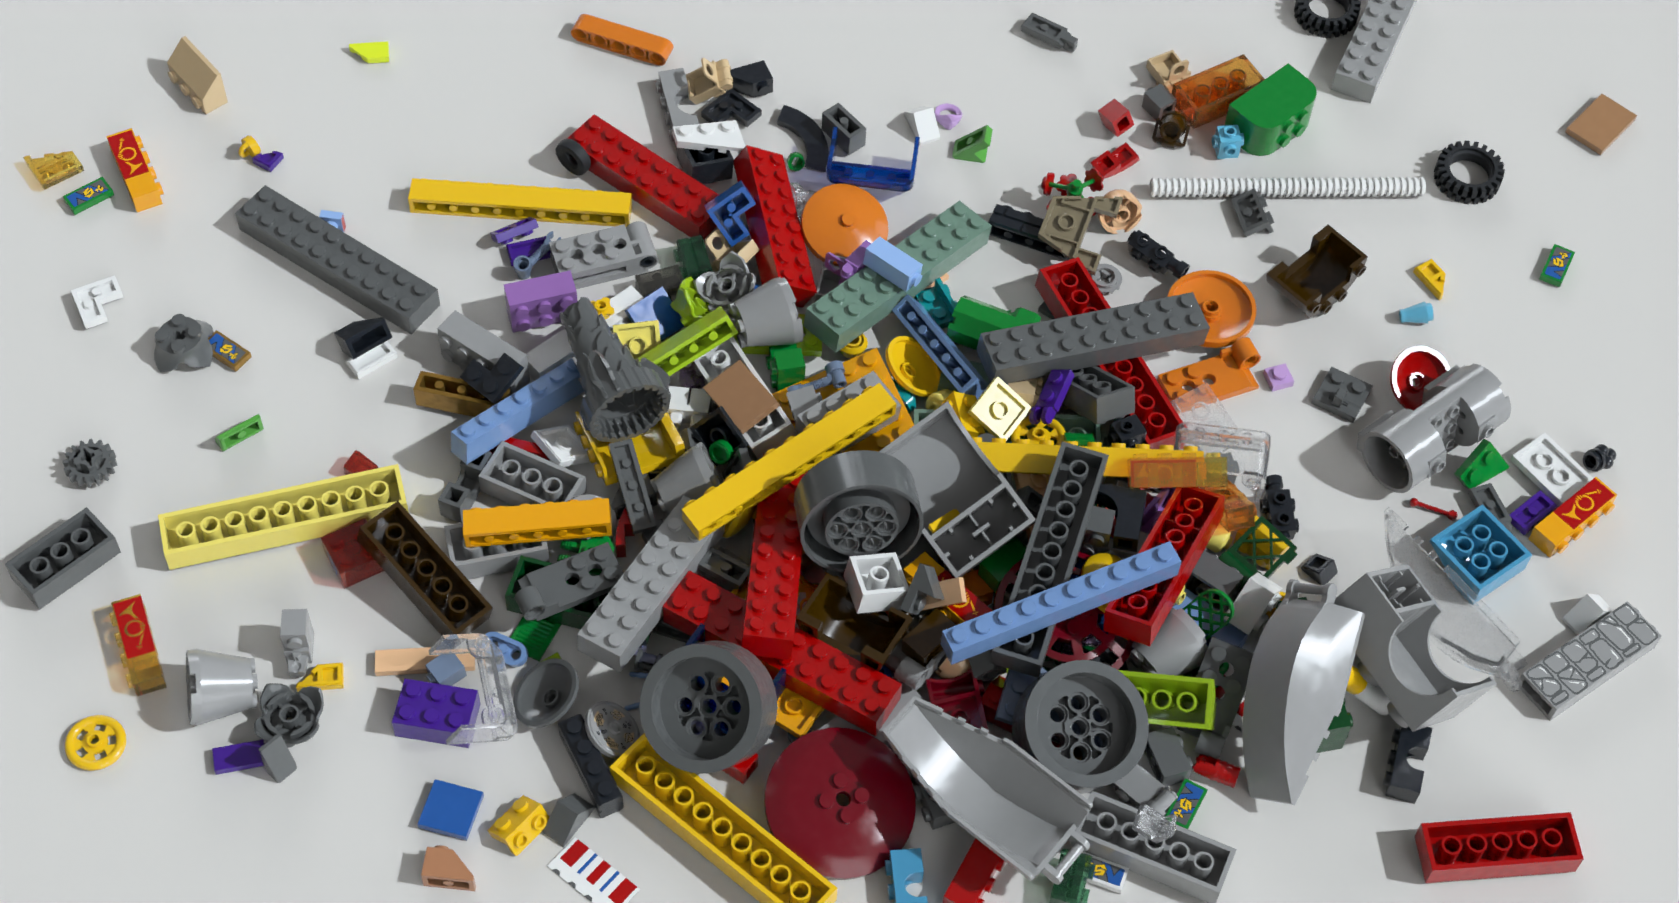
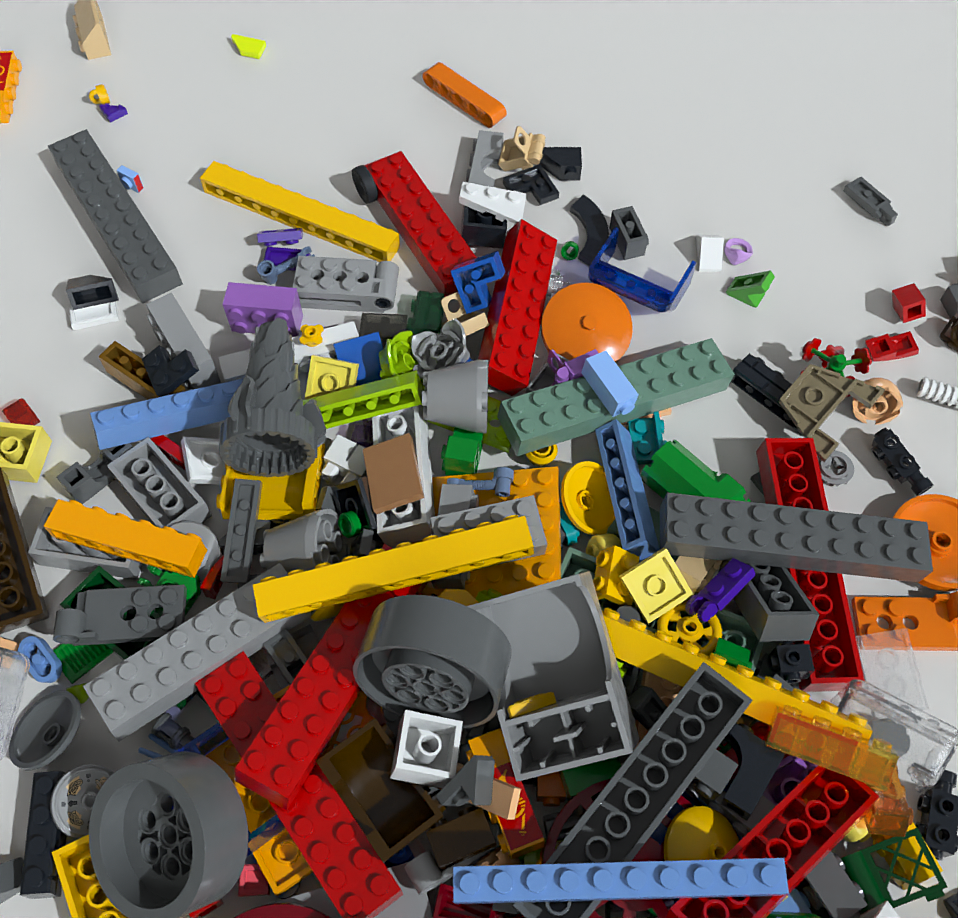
camera: 25 degrees right, 5 degrees up
(777, 741) = (253, 882): none -> coral tile

